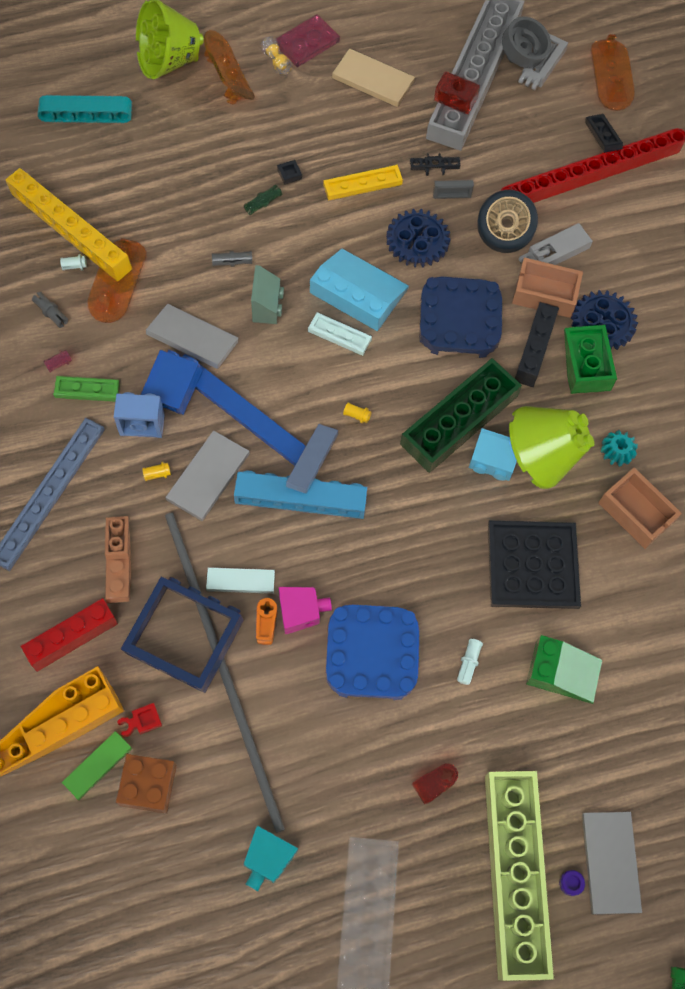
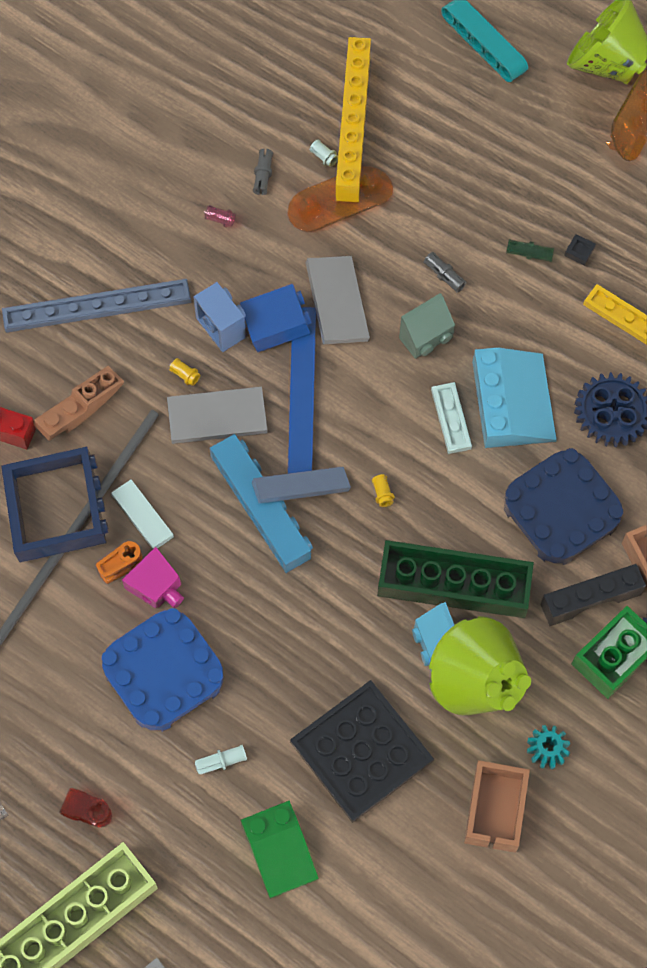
camera: 55 degrees right, 0 degrees up
(86, 388) = (215, 258): bright green tile -> none

